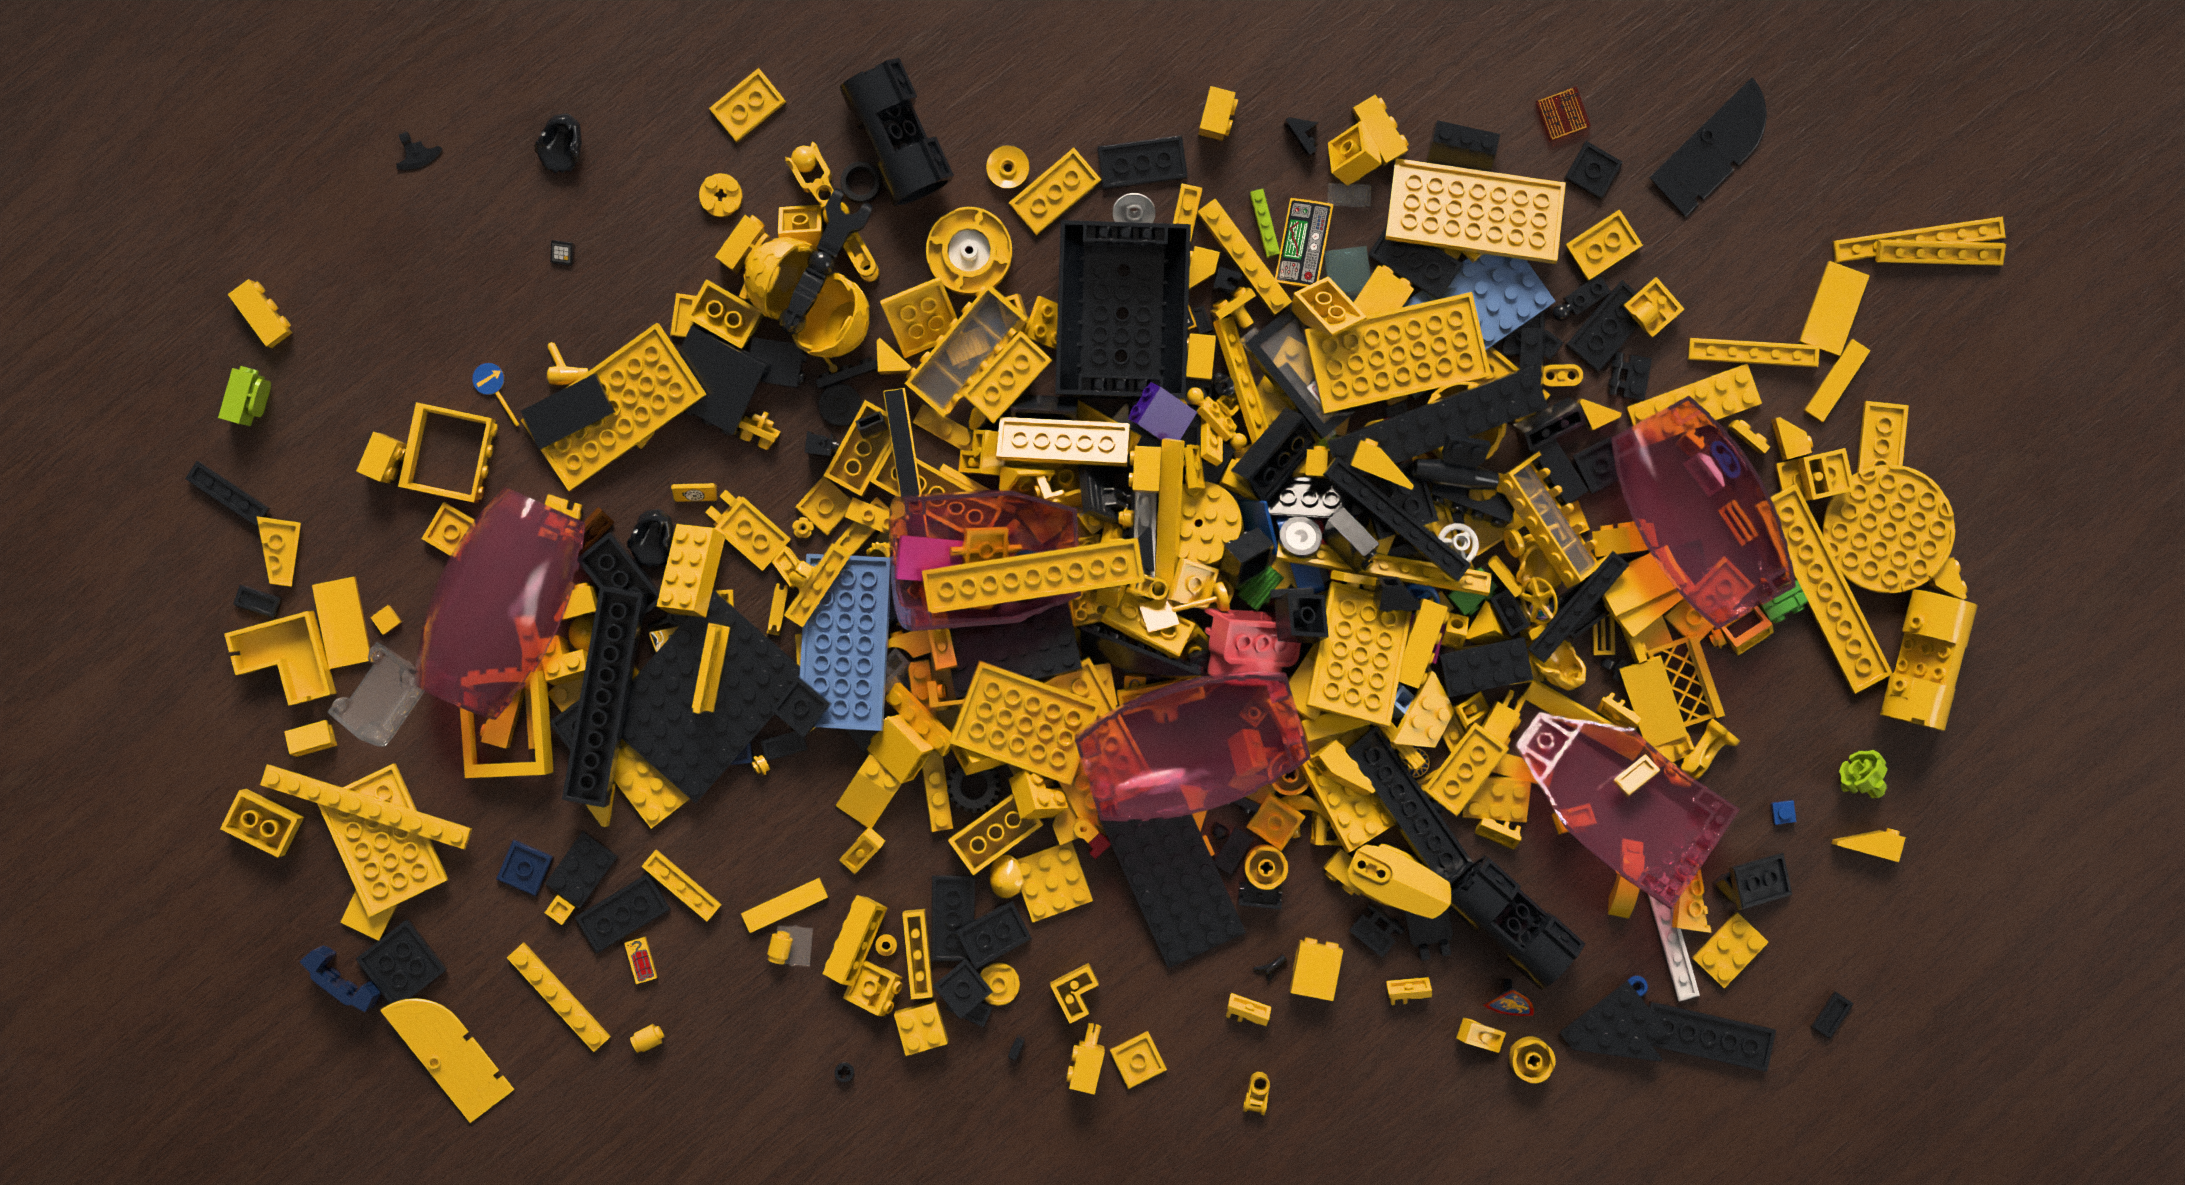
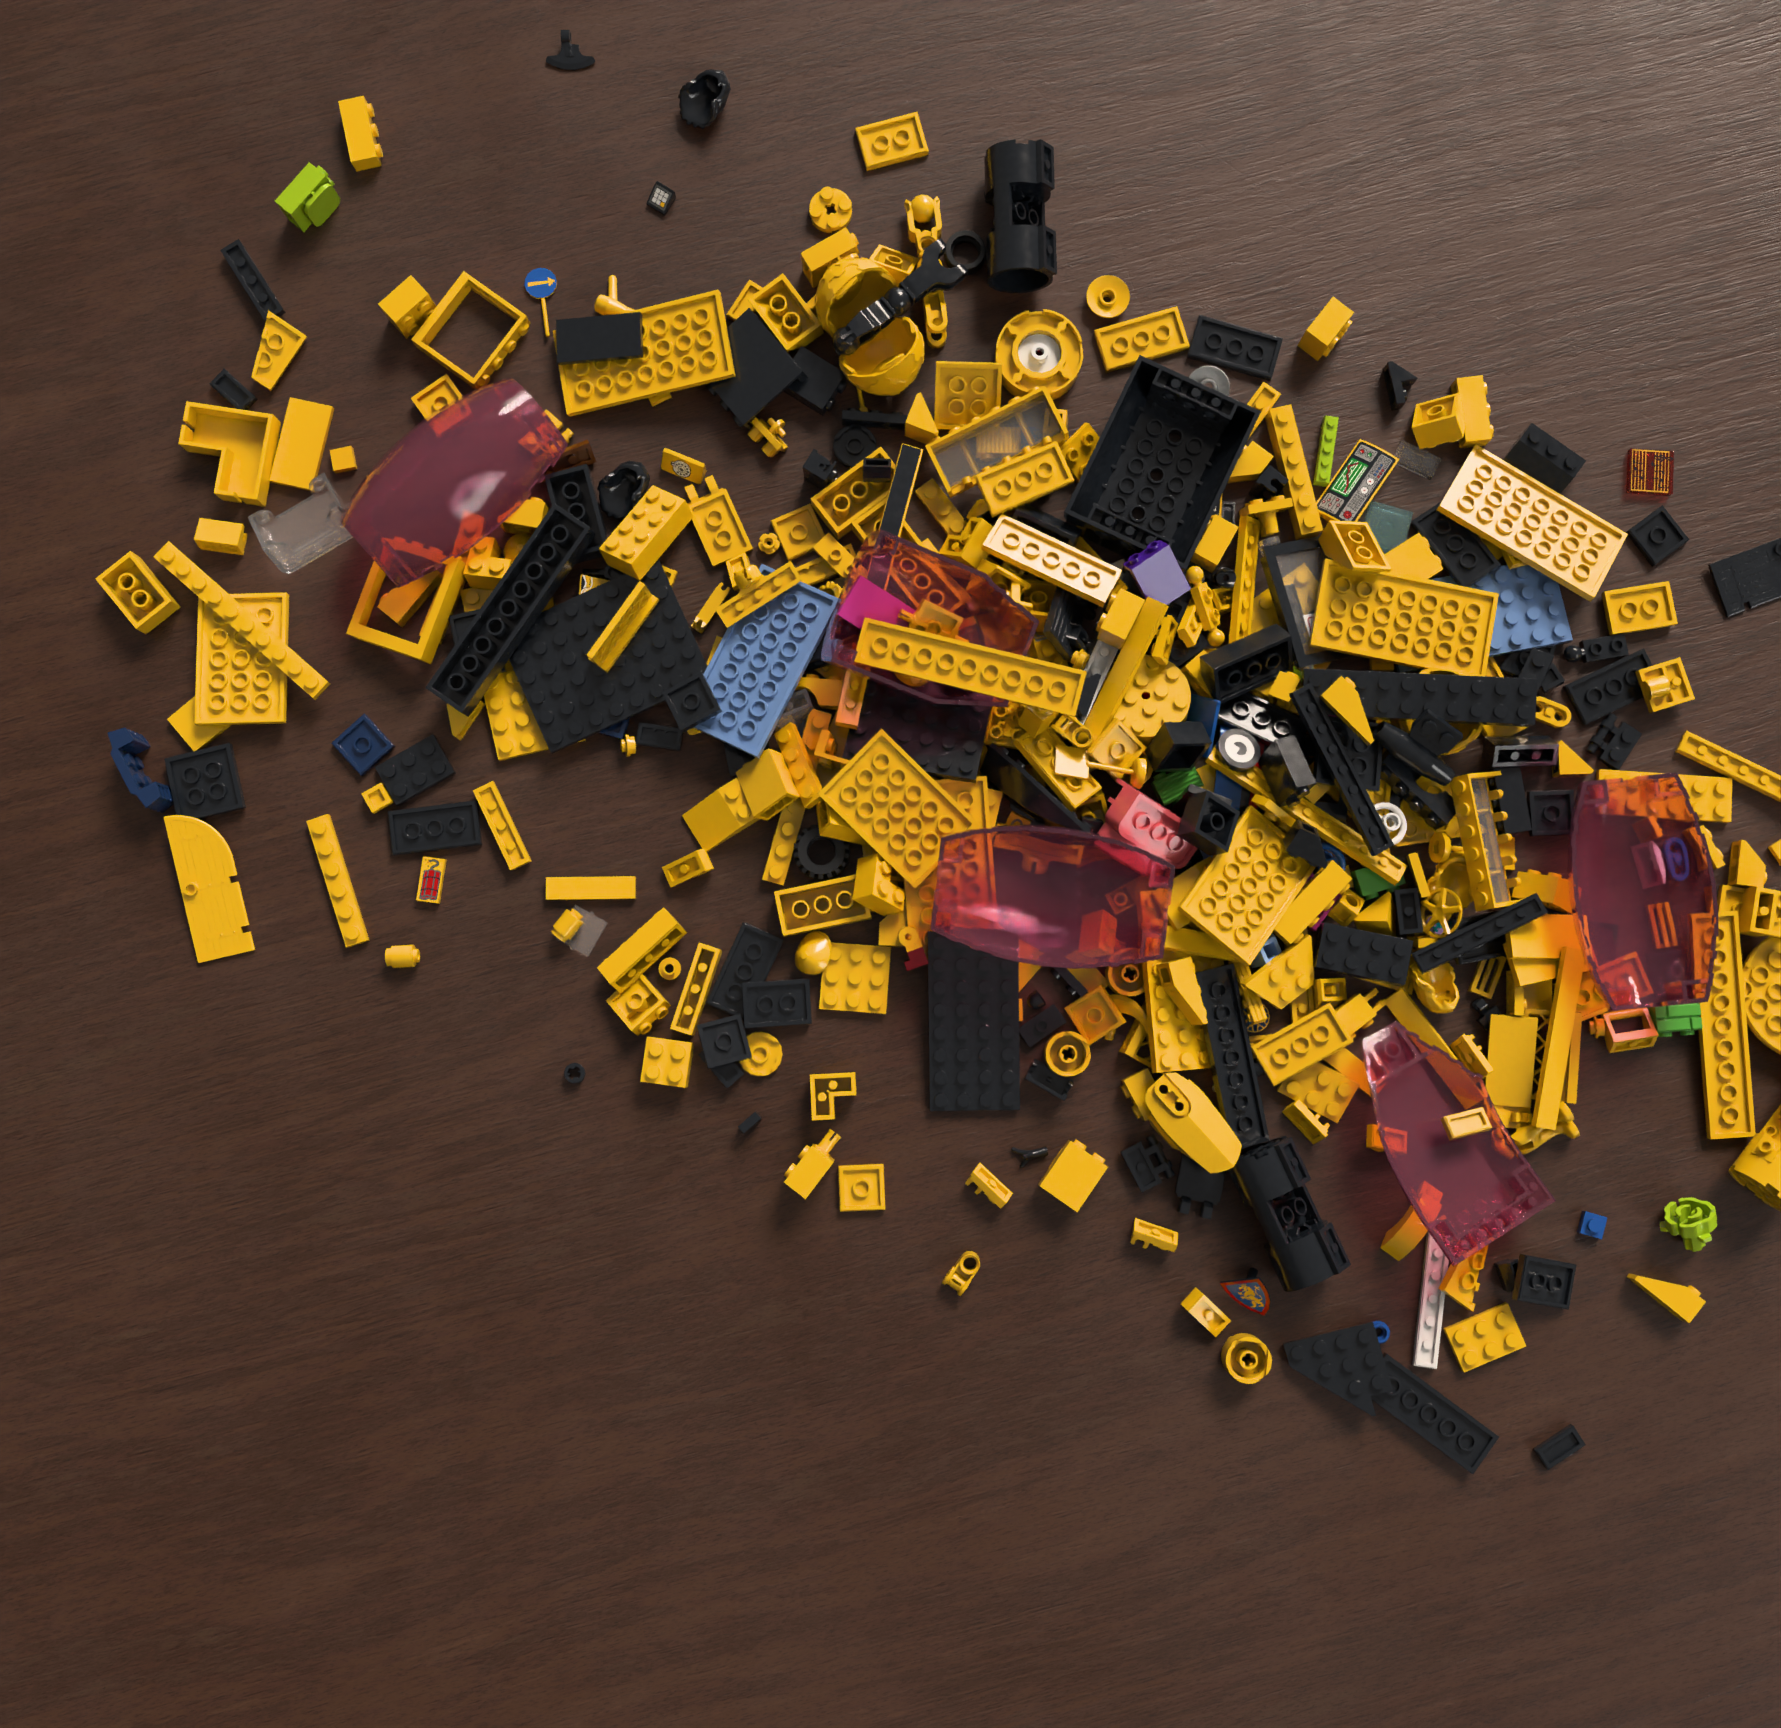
camera: 25 degrees right, 5 degrees down
(1685, 668) = (1558, 1038): none -> yellow tile

